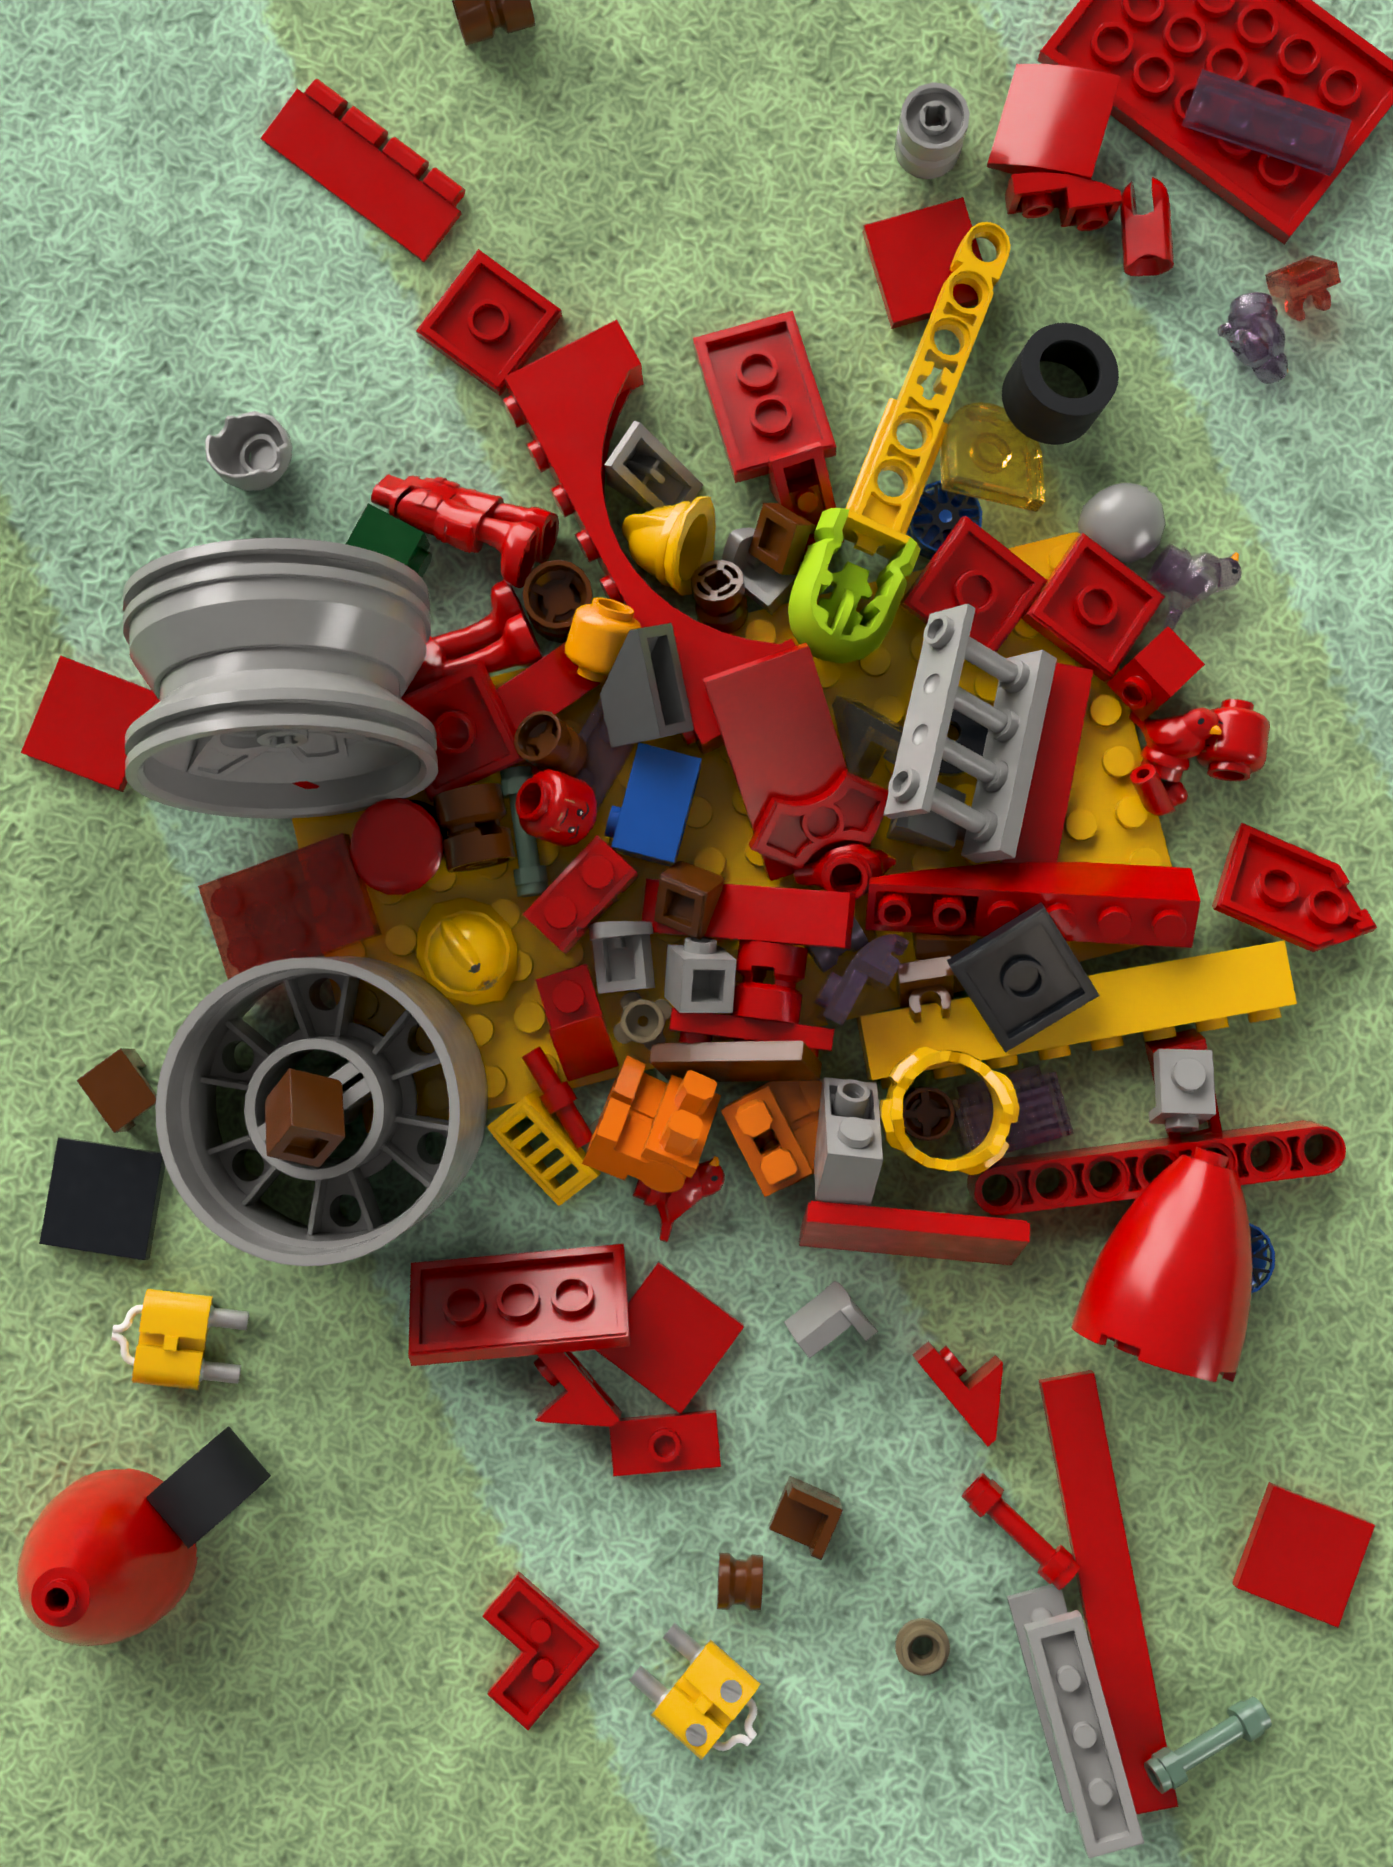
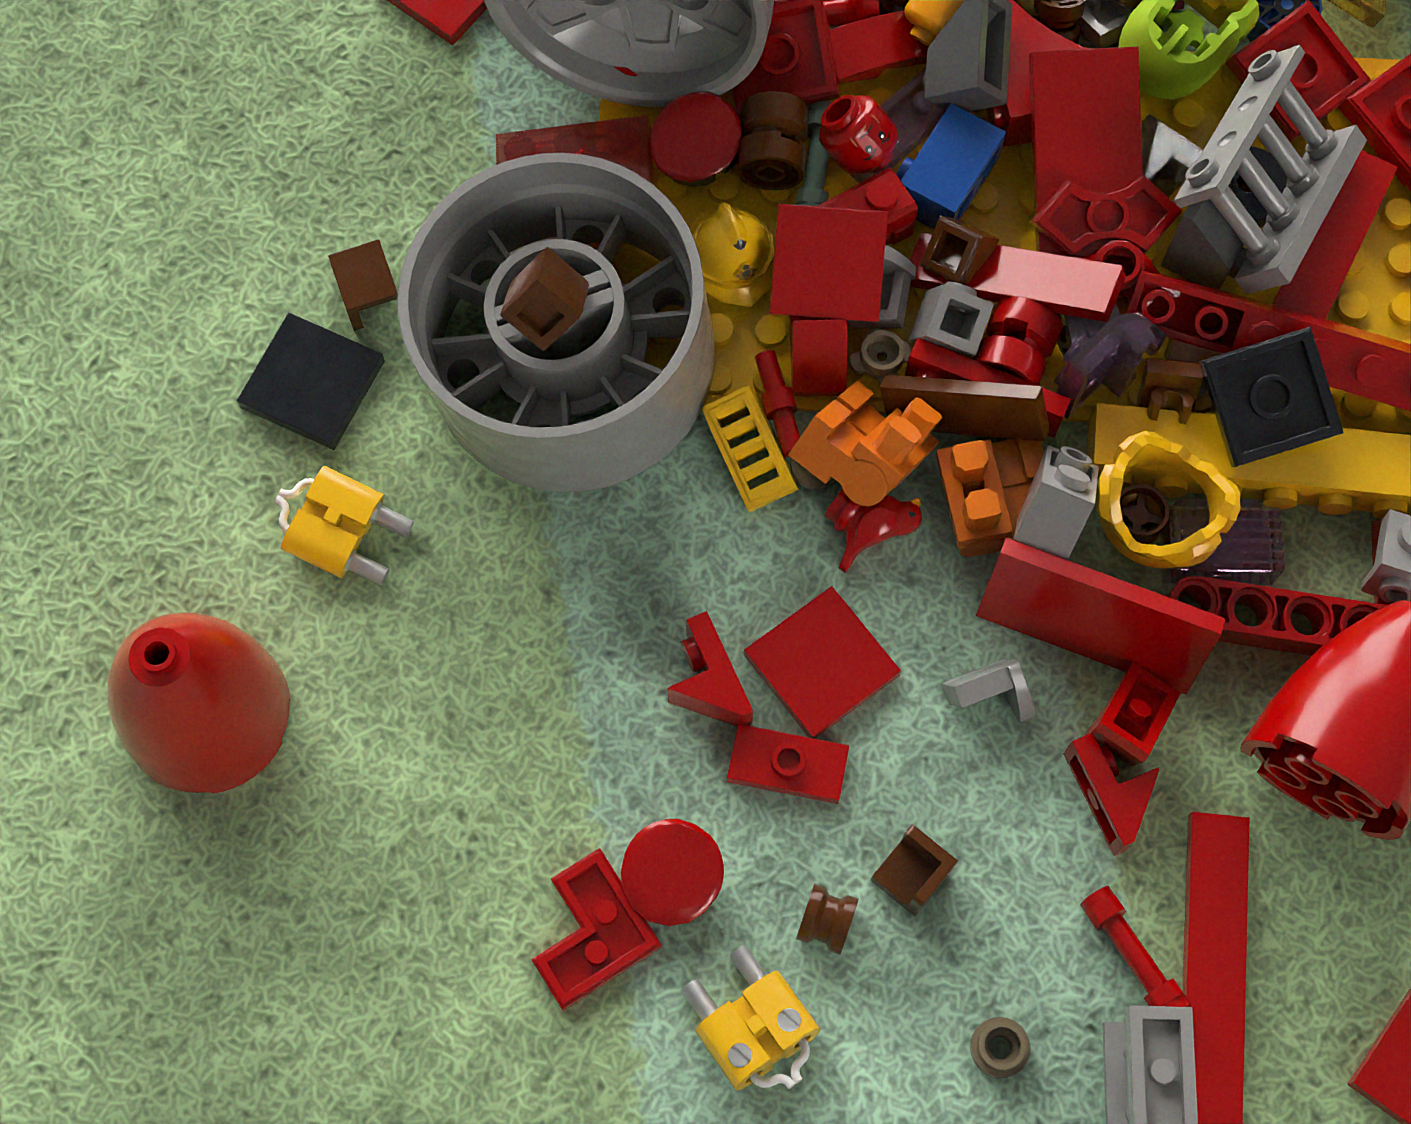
camera: 15 degrees right, 15 degrees down
(208, 1487) = (322, 657): black piece -> none
(518, 1305) = (683, 578): red tile -> none
(550, 744) = (867, 76): reddish brown wheel -> none
(565, 961) = (828, 262): none -> red tile
(589, 1578) = (672, 872): none -> red piece
(968, 1314) = (1134, 715): none -> red slope

